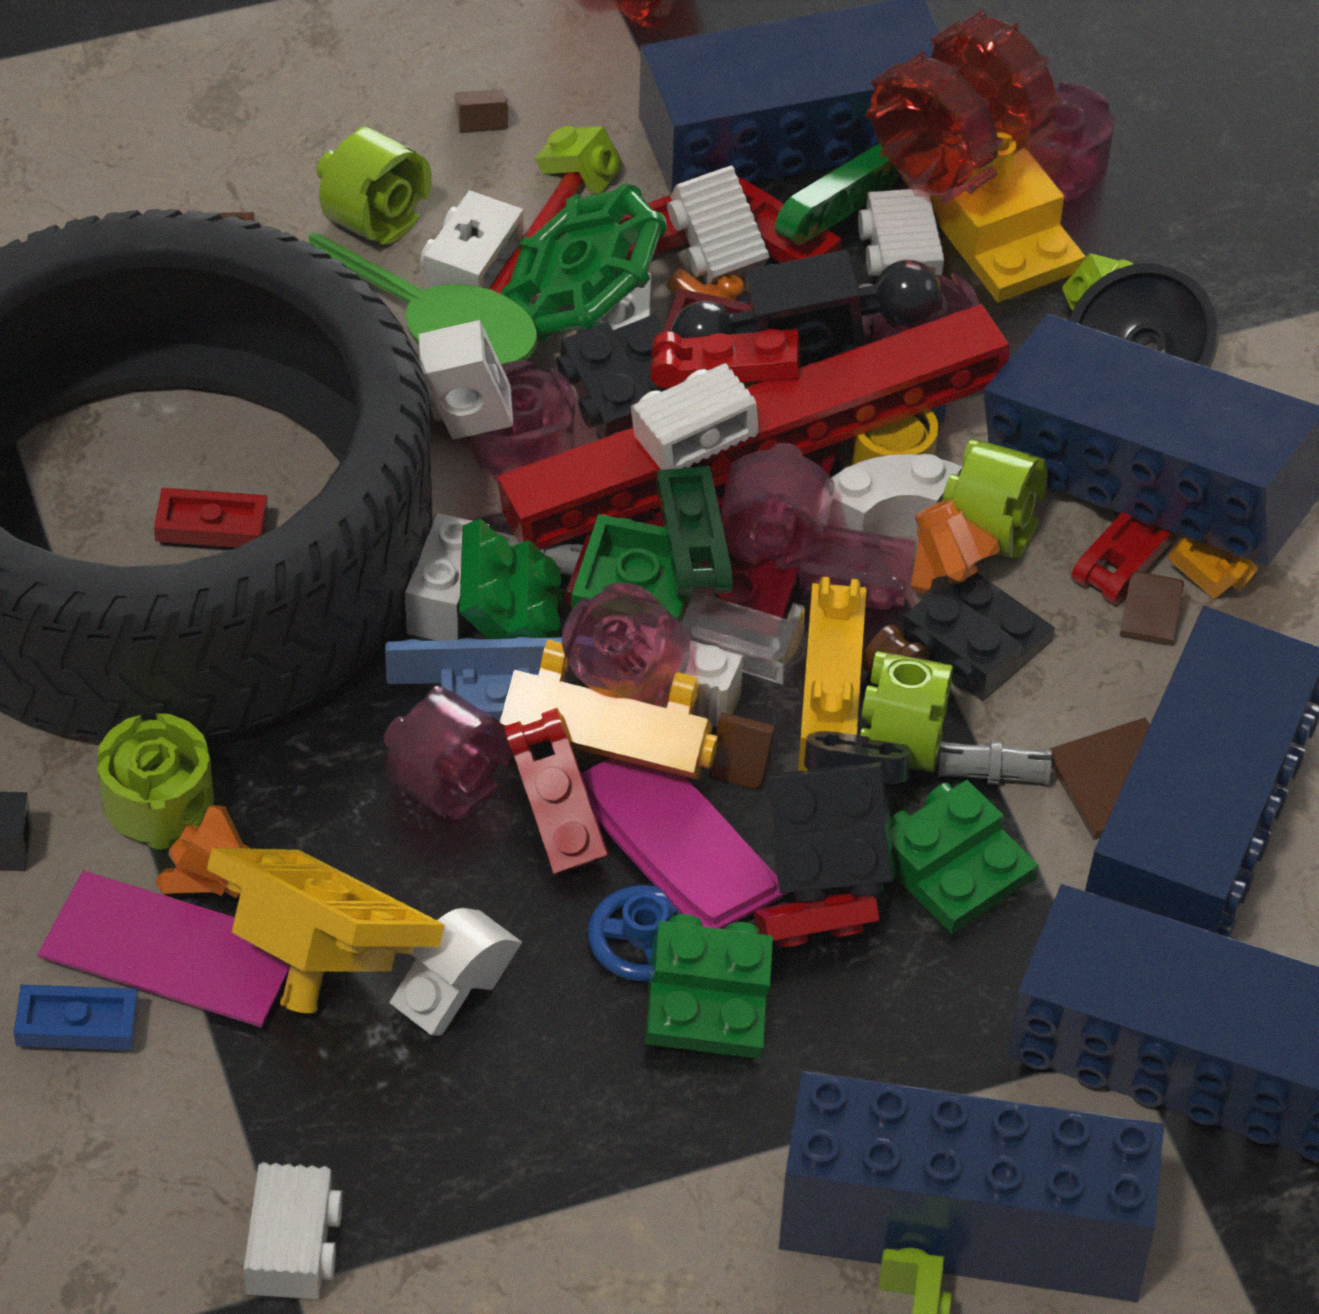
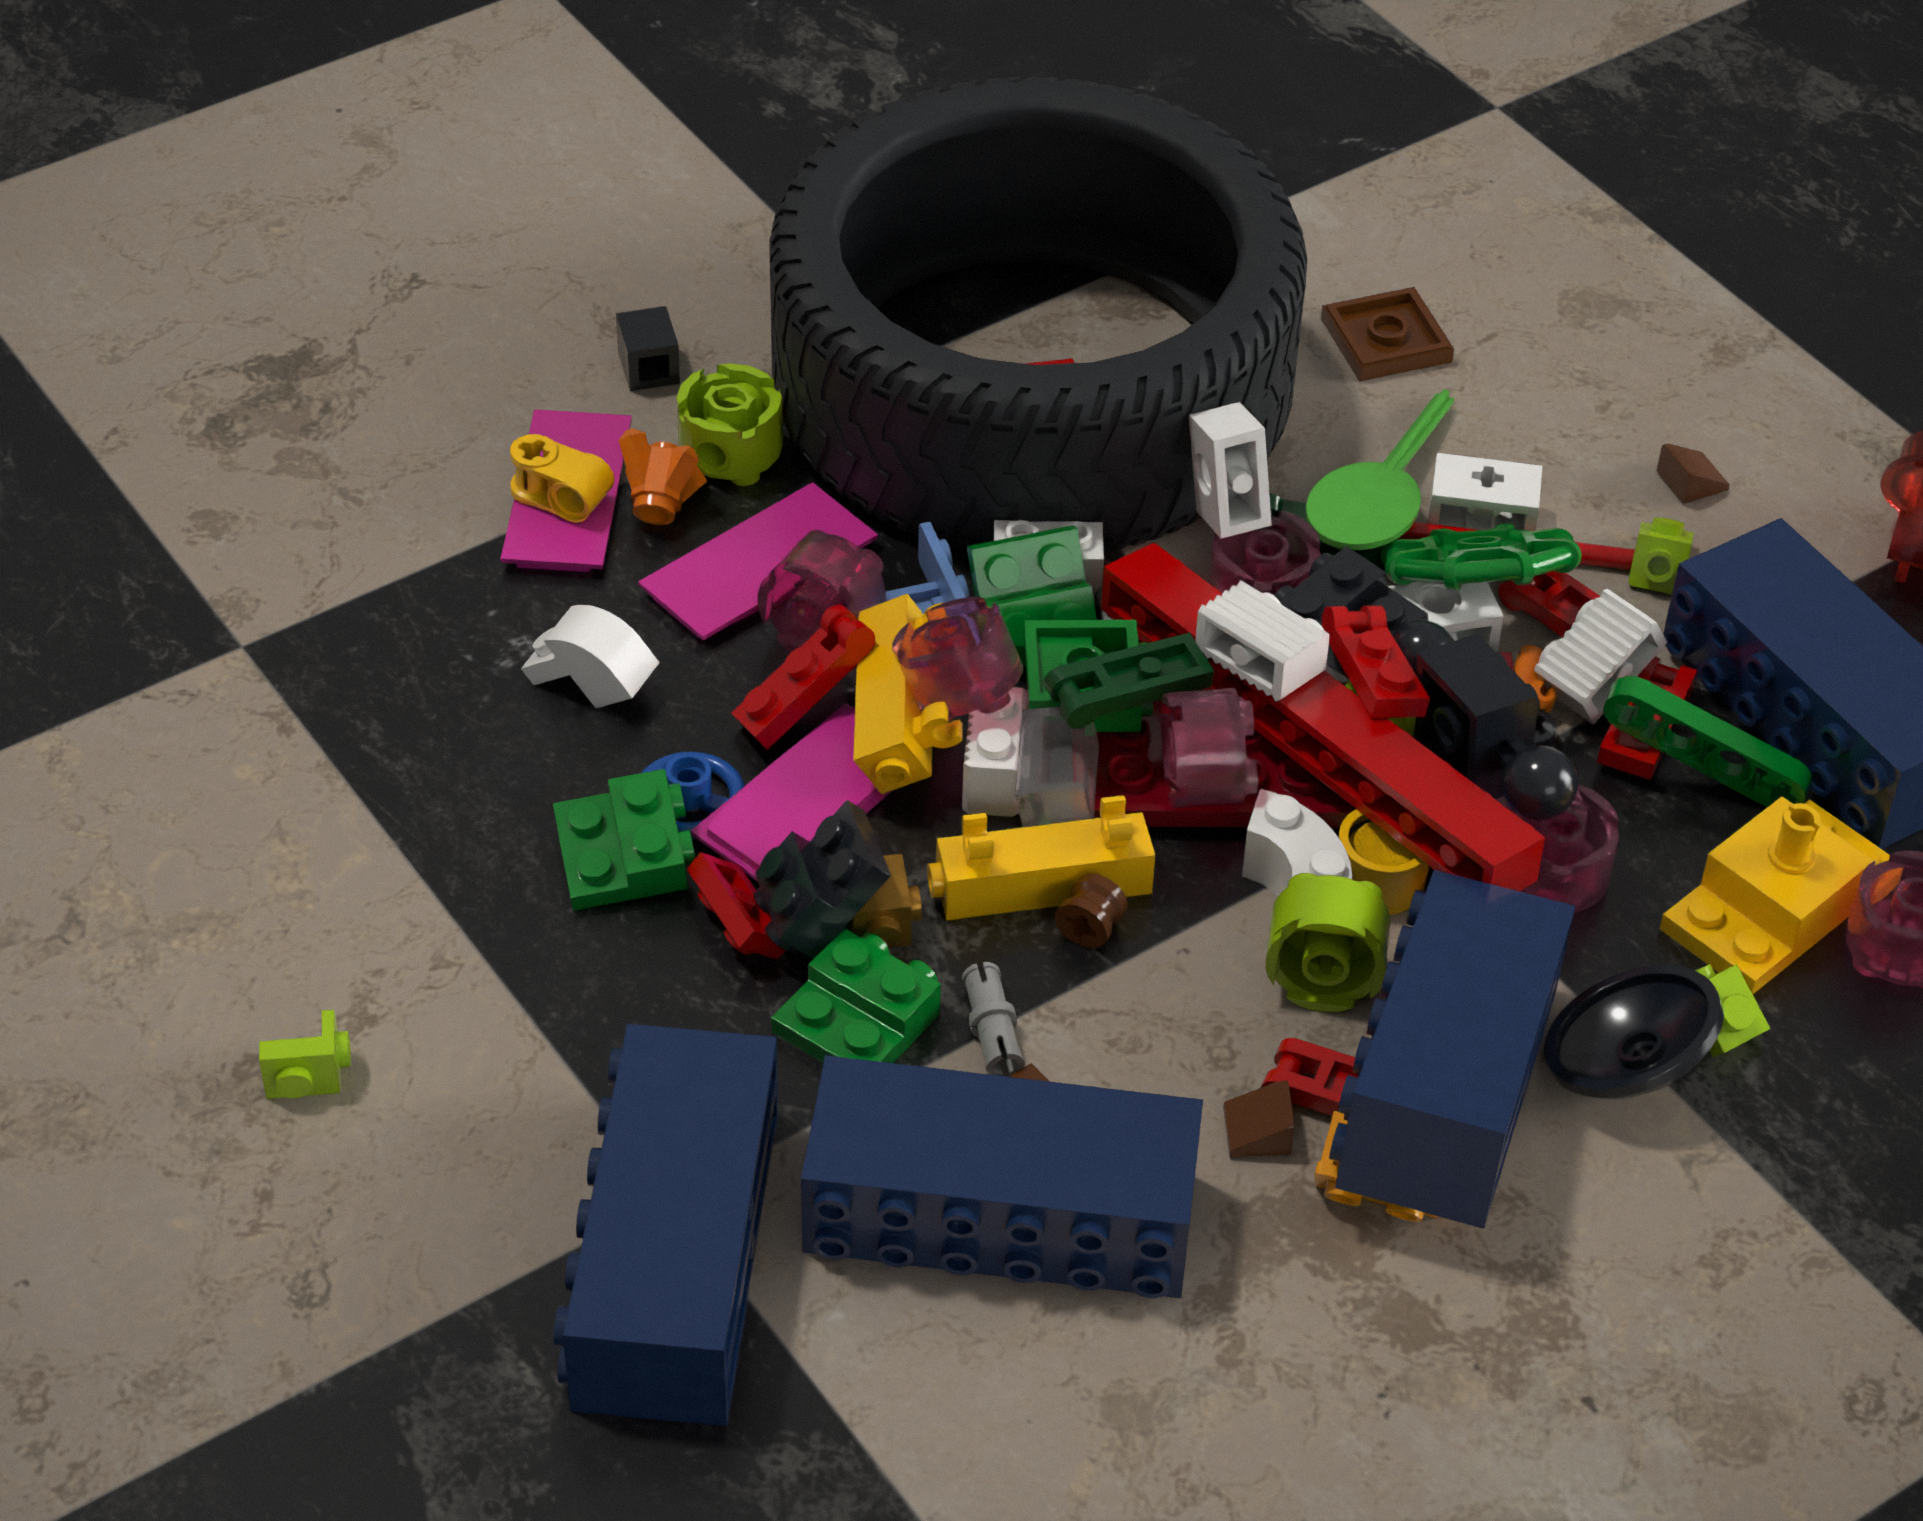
camera: 75 degrees right, 5 degrees down
(76, 1017) = (471, 444): blue plate -> none
(185, 942) = (561, 480): none -> yellow piece
(290, 1230) = (278, 617): white brick -> none
(317, 918) = (594, 530): yellow brick -> none
(341, 802) = (723, 577): none -> dark pink piece
(373, 185) = (1513, 402): lime brick -> none
(742, 751) = (926, 818): reddish brown slope -> none
(838, 749) = (919, 879): black beam -> none
(876, 560) = (1200, 860): clear pink bracket -> none
(900, 229) = (1682, 817): white brick -> none
(908, 705) = (1003, 913): lime brick -> none
(945, 111) = (1792, 750): clear red piece -> none
(948, 545) = (1239, 910): orange rock -> none
(973, 1180) = (411, 1059): dark blue brick -> none
(977, 632) = (1160, 975): black plate -> none

